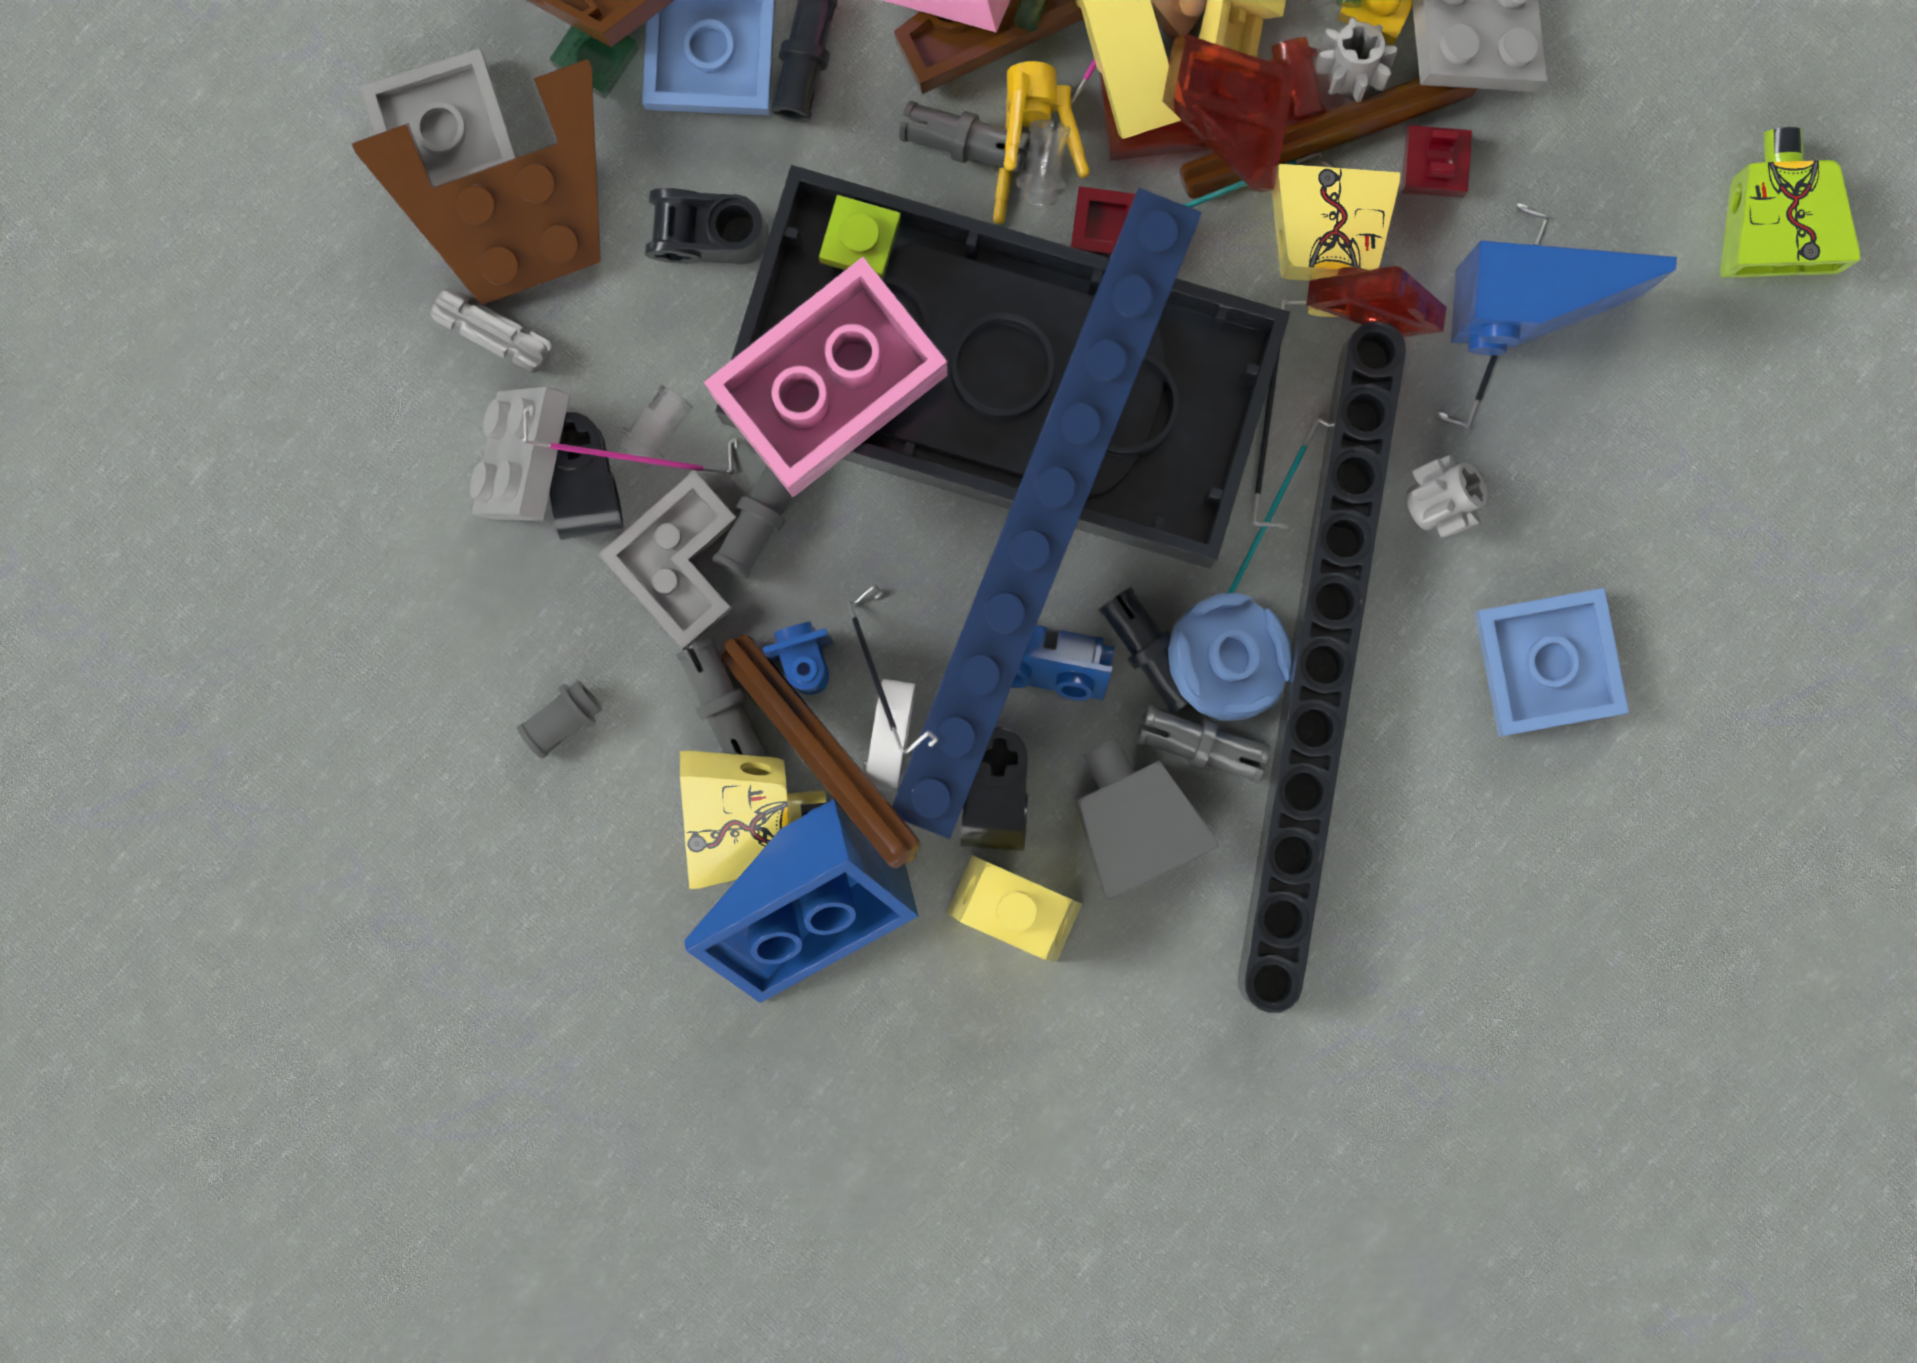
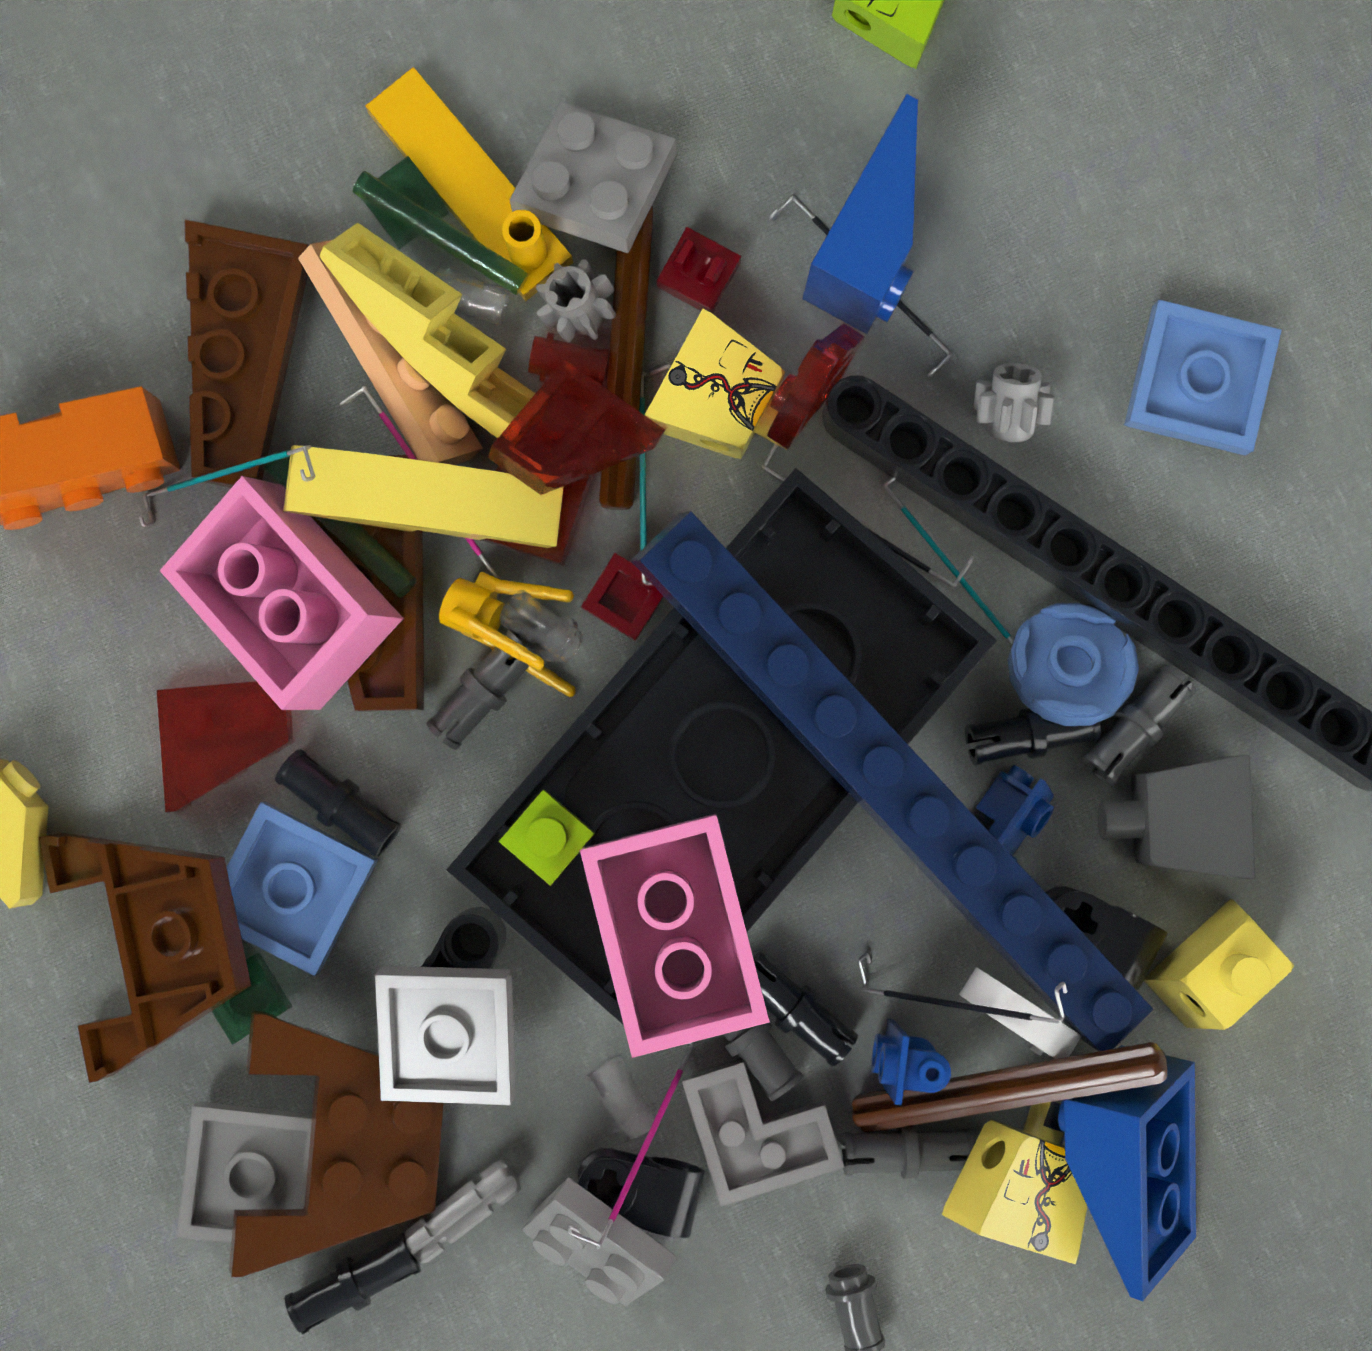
camera: 70 degrees left, 0 degrees up
(384, 260) = (351, 1284): none -> black pin
(644, 235) = (446, 1035): none -> plate
(804, 546) = (801, 1013): none -> black pin

